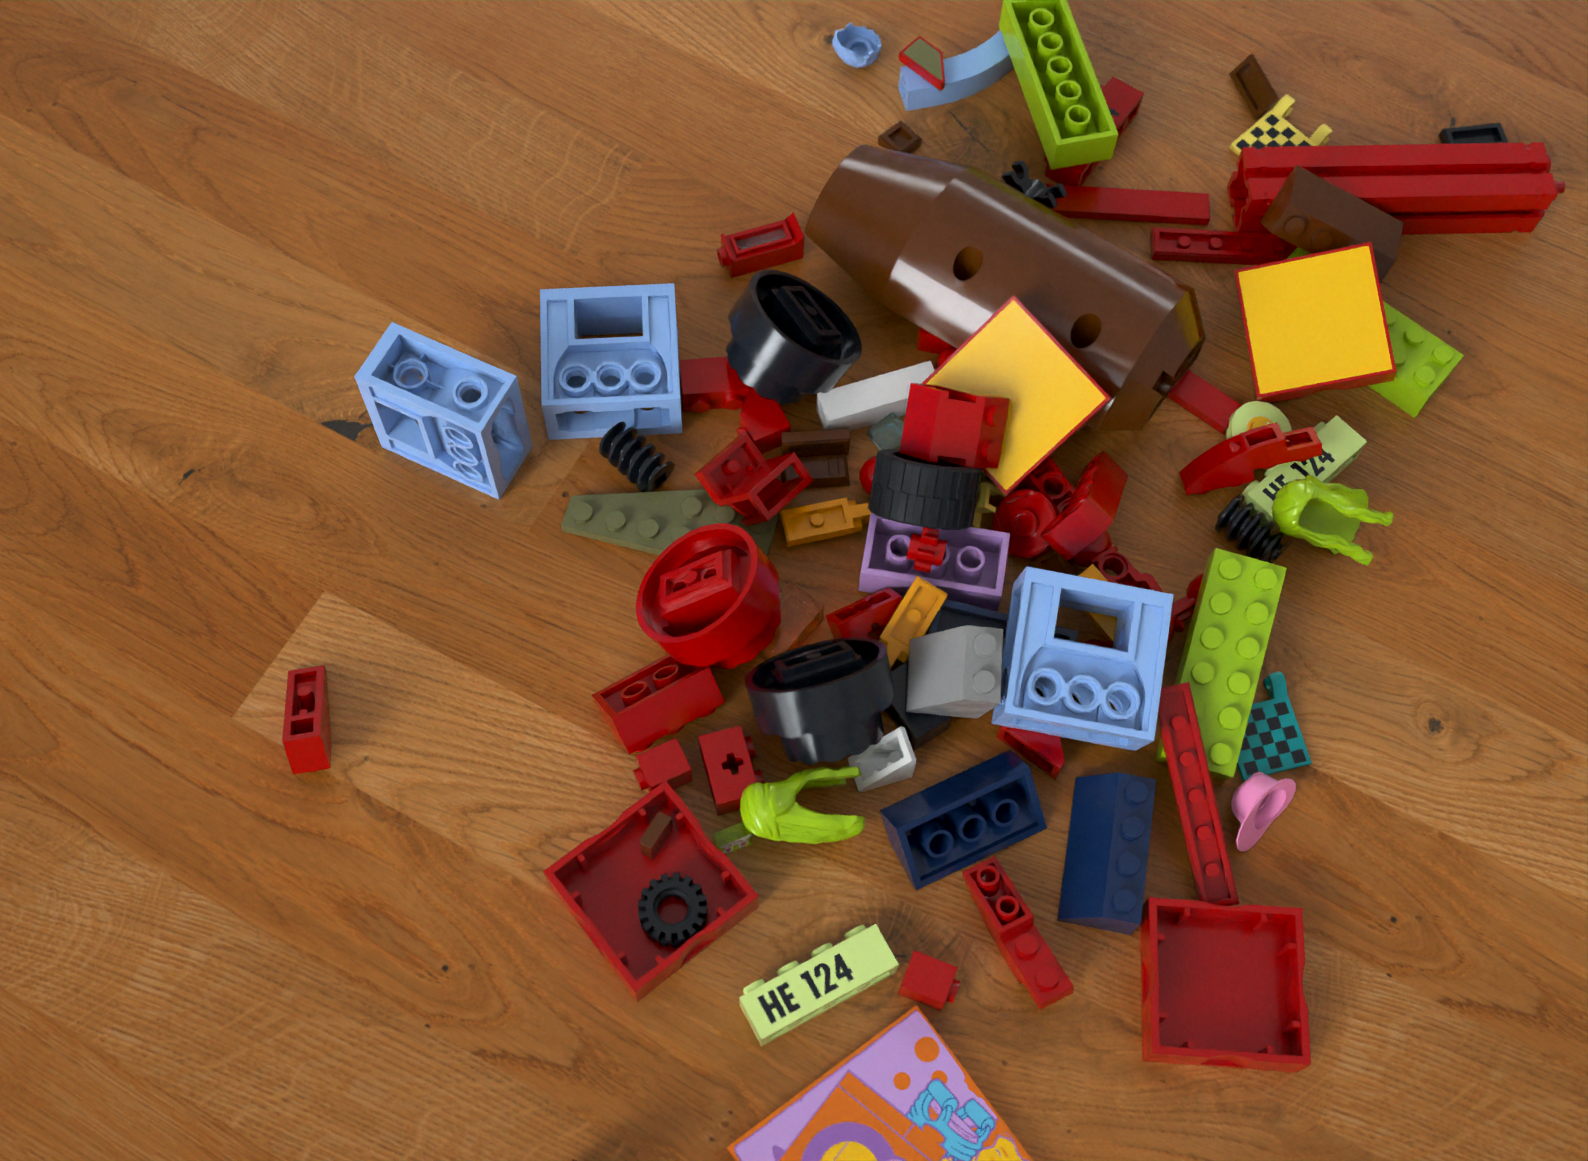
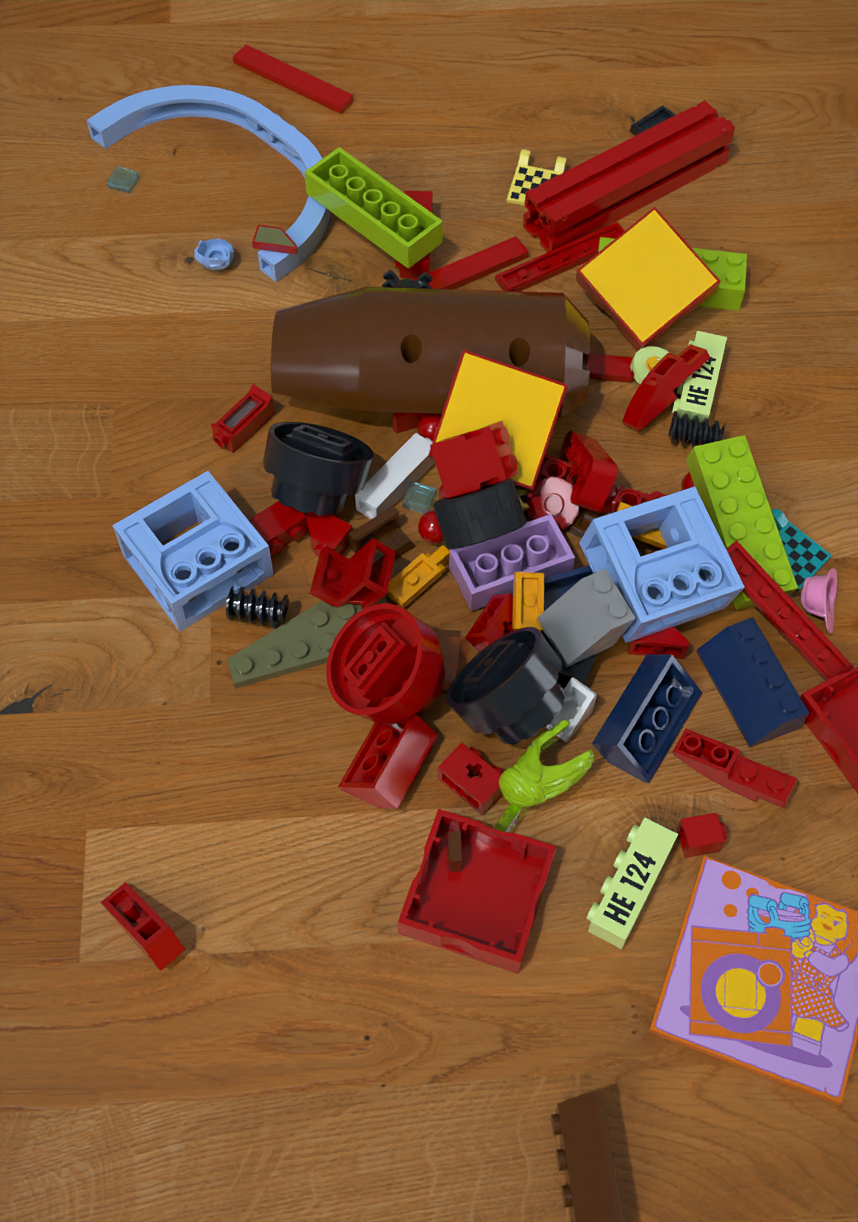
camera: 30 degrees left, 5 degrees down
(464, 409) = (116, 631): light blue piece -> none
(662, 764) = (424, 804): red brick -> none
(672, 887) = (496, 912): black tyre -> none
(900, 138) = (286, 299): reddish brown tile -> none
(926, 549) = (508, 552): red gear -> none
(1254, 86) = (497, 154): reddish brown tile -> none
(1326, 515) = (735, 394): lime hair -> none
(1327, 218) = (607, 210): reddish brown slope -> none

